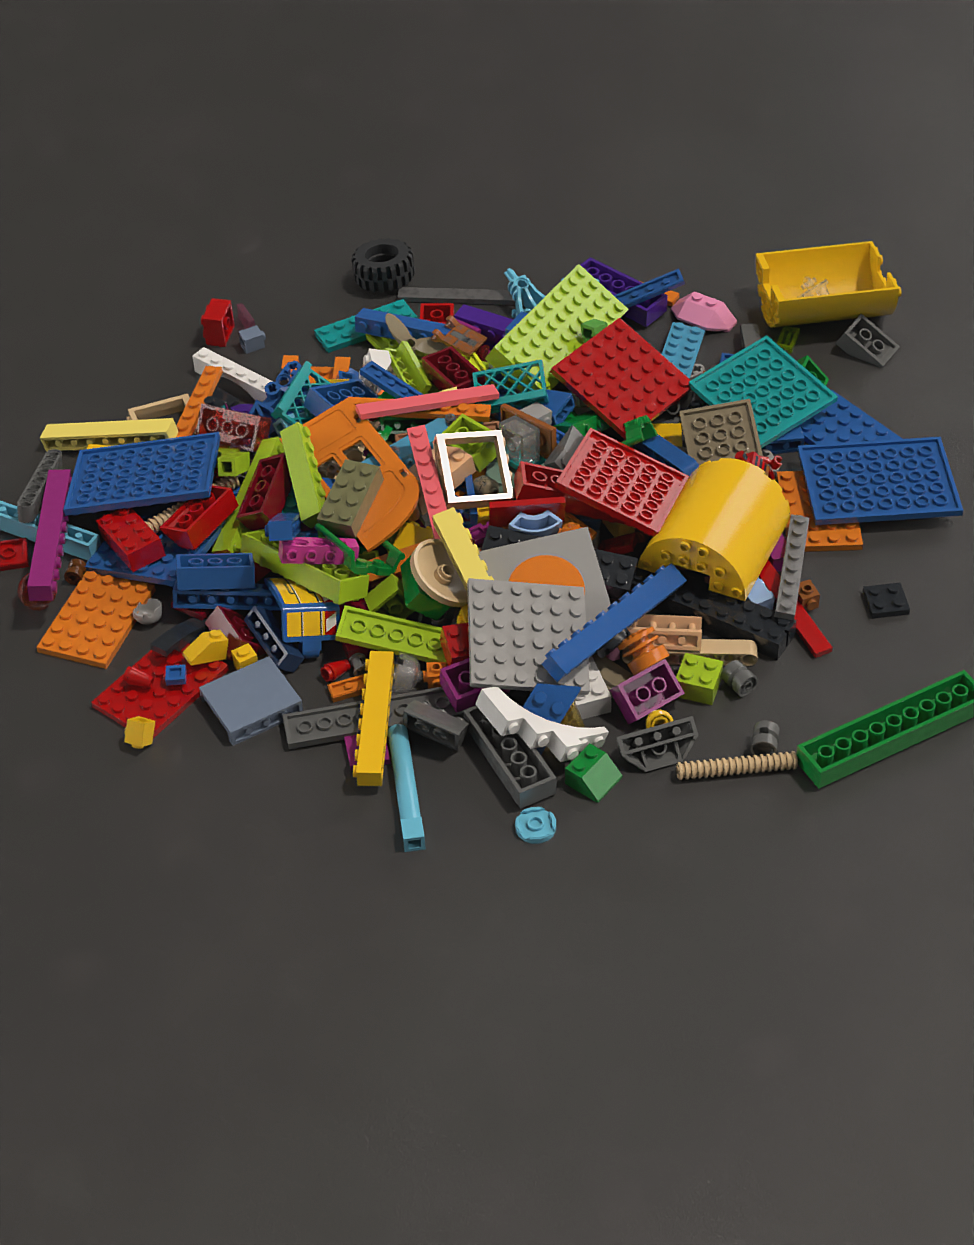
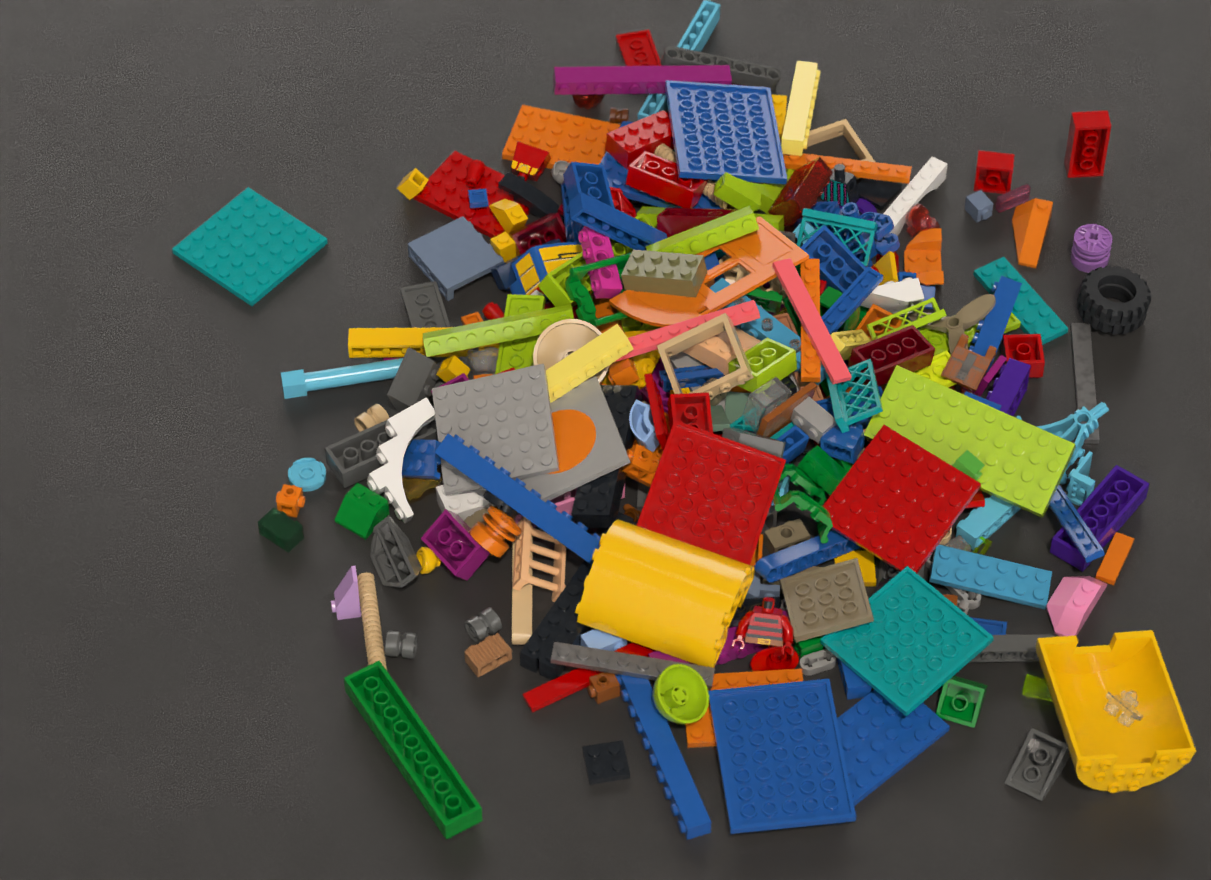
camera: 85 degrees right, 5 degrees up
(129, 637) = (529, 161): none -> red torso
(195, 884) = (249, 246): none -> teal plate
(208, 256) = (1087, 144): none -> red brick
(268, 366) = (919, 220): none -> clear red cylinder
(278, 309) = (1030, 228): none -> orange wedge
(319, 275) = (1091, 247): none -> medium lavender wheel
(390, 639) = (493, 330): none -> lime brick
(423, 689) = (452, 368): none -> yellow brick
(473, 765) = (374, 416): none -> tan wheel
(579, 831) = (290, 500): none -> orange brick
(615, 841) = (281, 529): none -> clear green brick
(699, 678) = (482, 590): lime brick -> none
(714, 771) = (347, 597): none -> lavender slope
(773, 676) = (488, 655): none -> medium nougat brick
(829, 534) = (681, 694): none -> lime piece
(881, 556) = (665, 756): none -> blue brick

